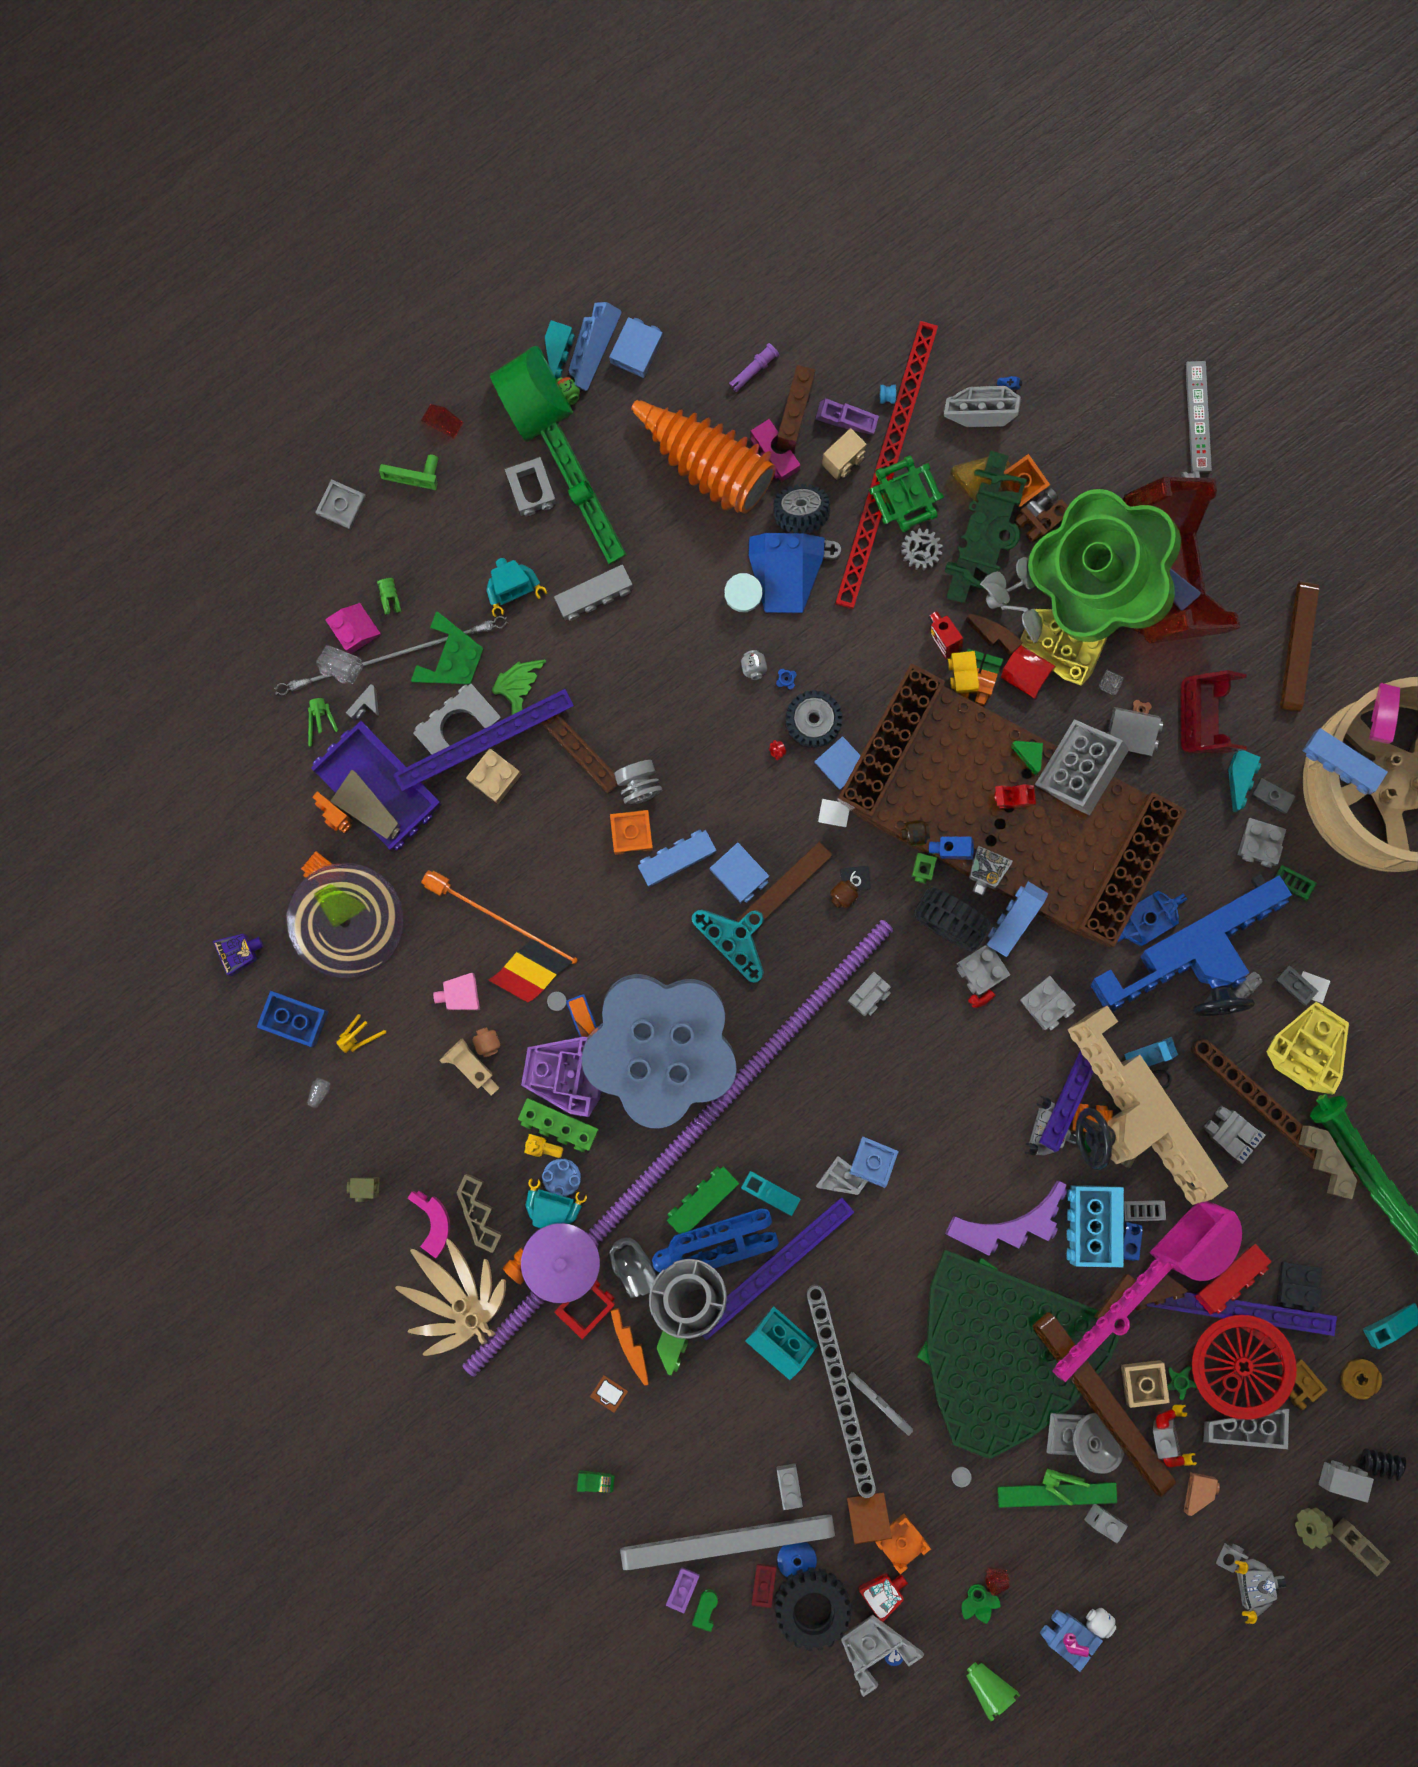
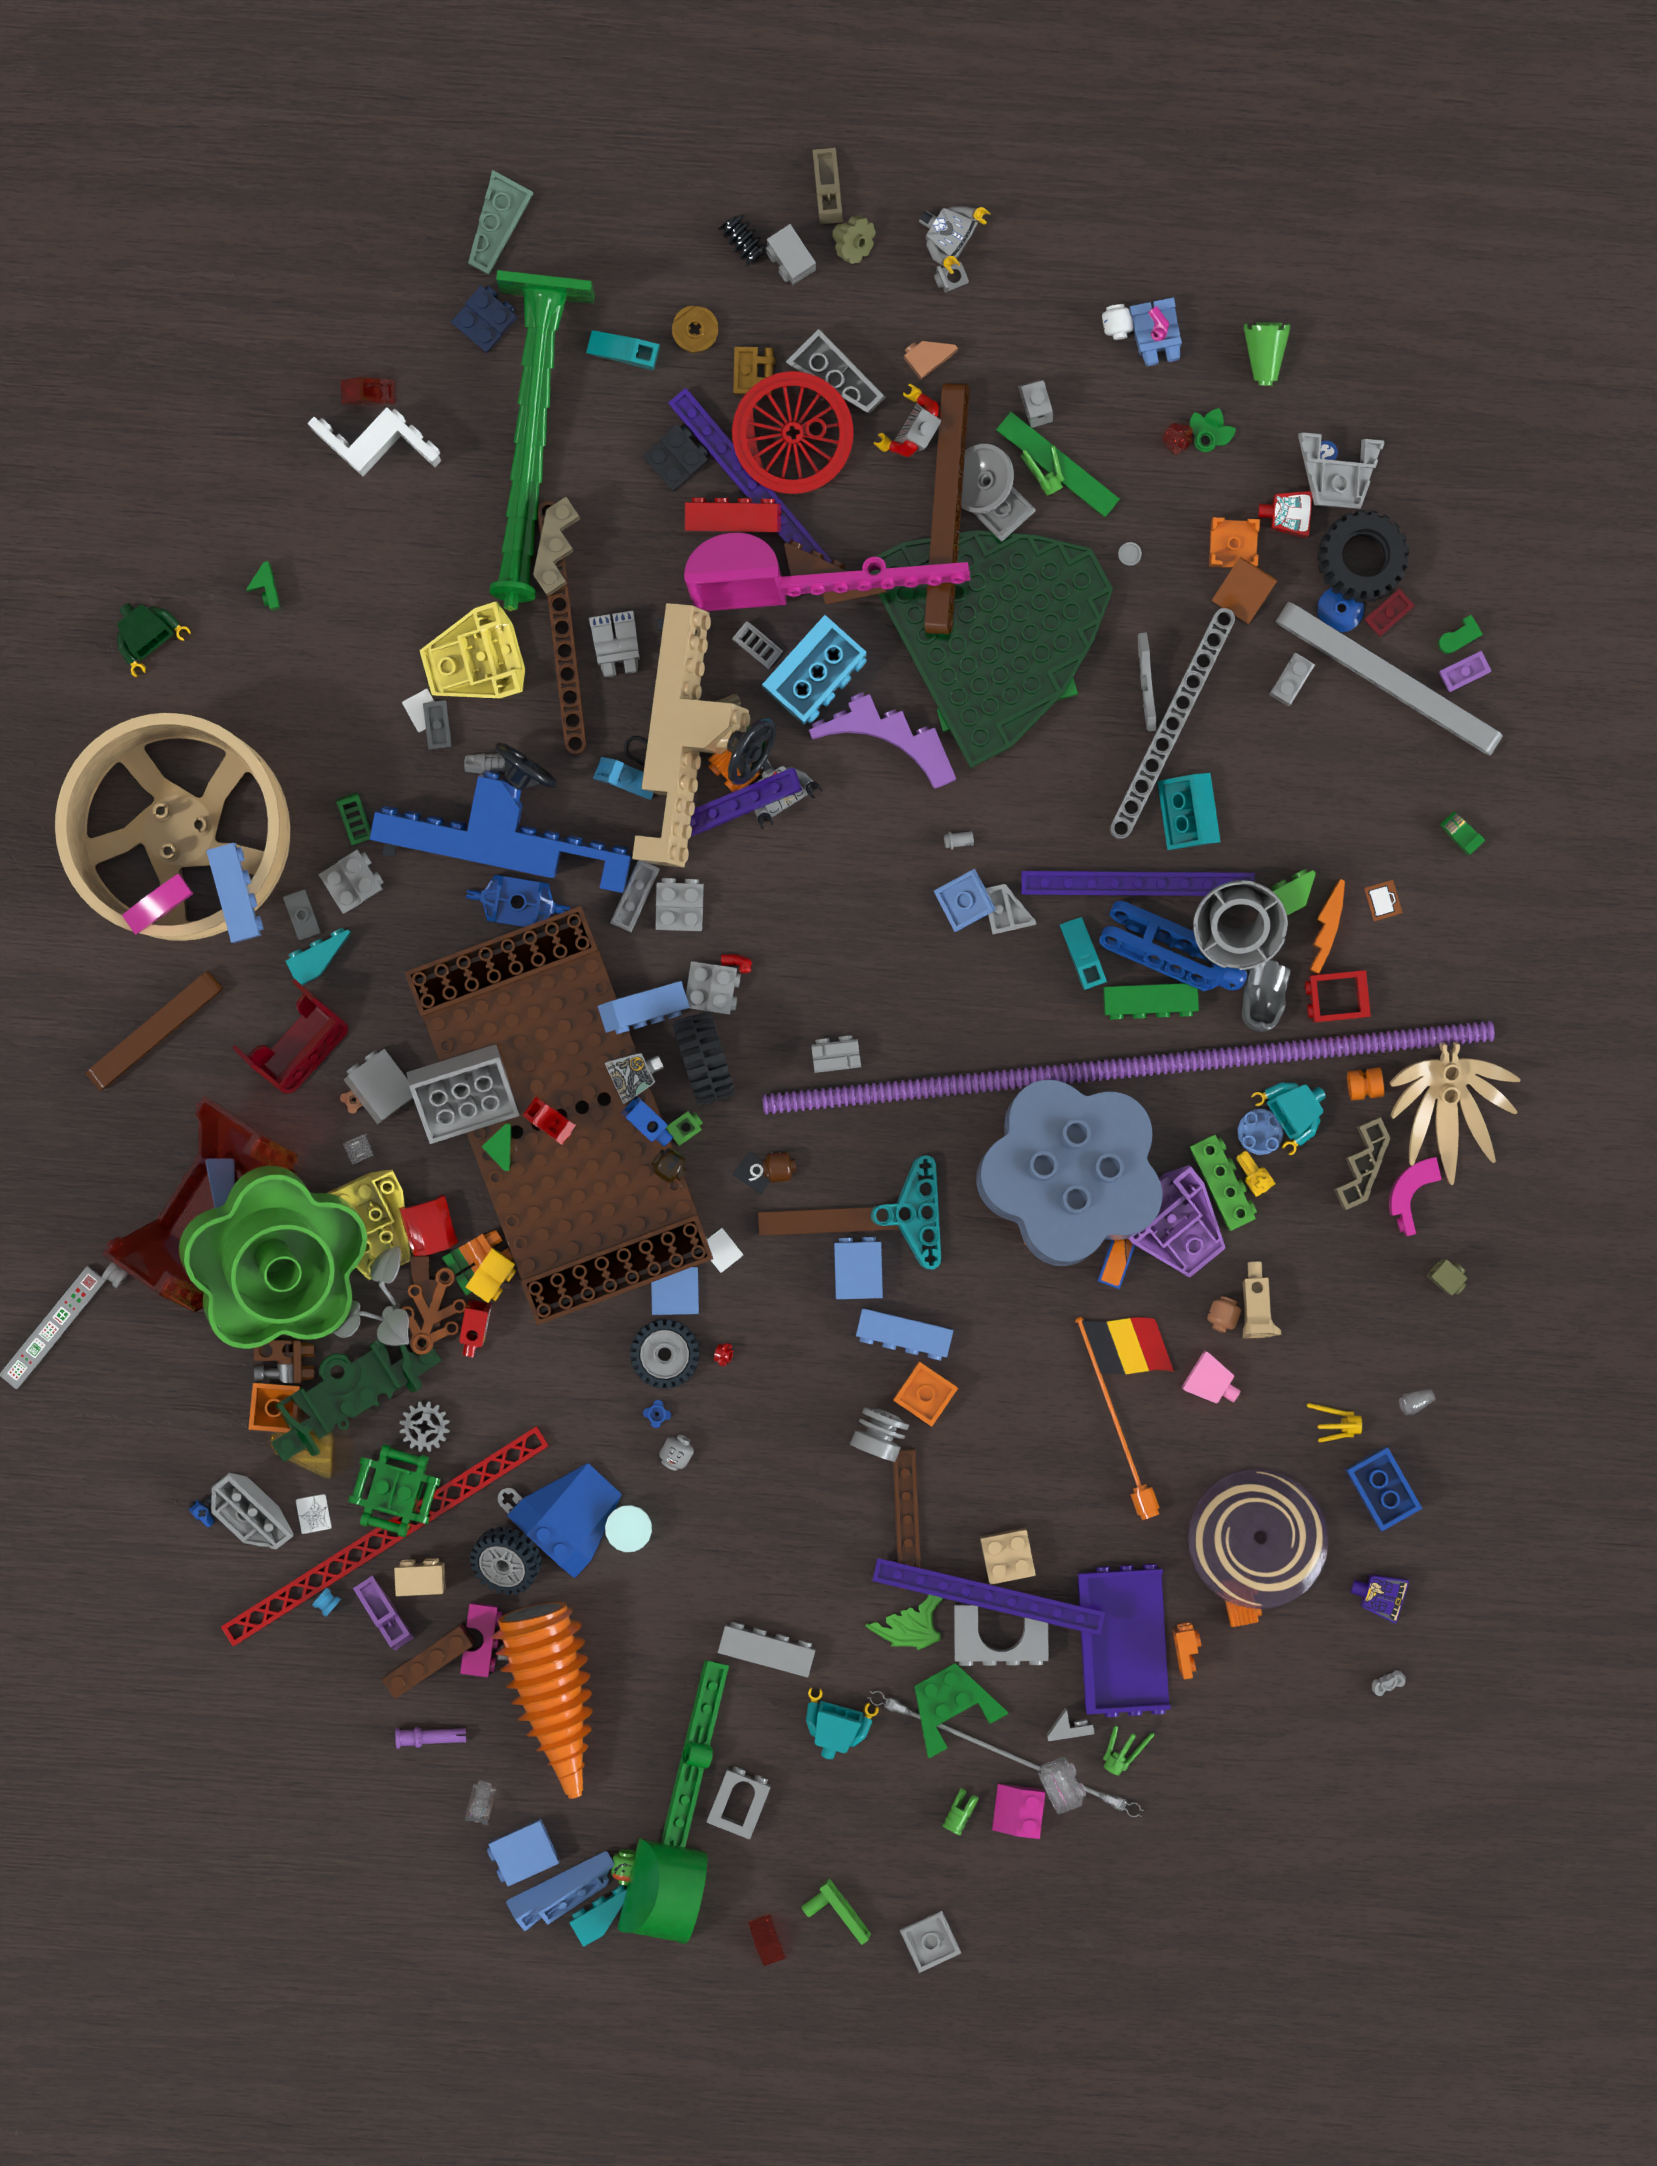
camera: 145 degrees left, 5 degrees up
(187, 901) = (1388, 1682): none -> light grey piece
(338, 904) = (1253, 1556): clear neon green wing -> none
(363, 804) = (1151, 1632): dark tan slope -> none
(556, 1001) = (1127, 1297): light grey piece -> none
(560, 1263) = (1327, 1055): medium lavender dish -> none
(688, 353) = (480, 1803): none -> clear hips
(909, 1199) = (958, 839): none -> light grey pin
(941, 441) = (313, 1514): none -> white sticker
(979, 618) = (432, 1315): none -> dark orange plant
(1080, 985) = (634, 896): none -> light grey tile
(1132, 1241) = (794, 628): blue leg -> none
(1145, 1383) = (894, 494): tan brick -> none
(1180, 1381) = (860, 467): green animal -> none

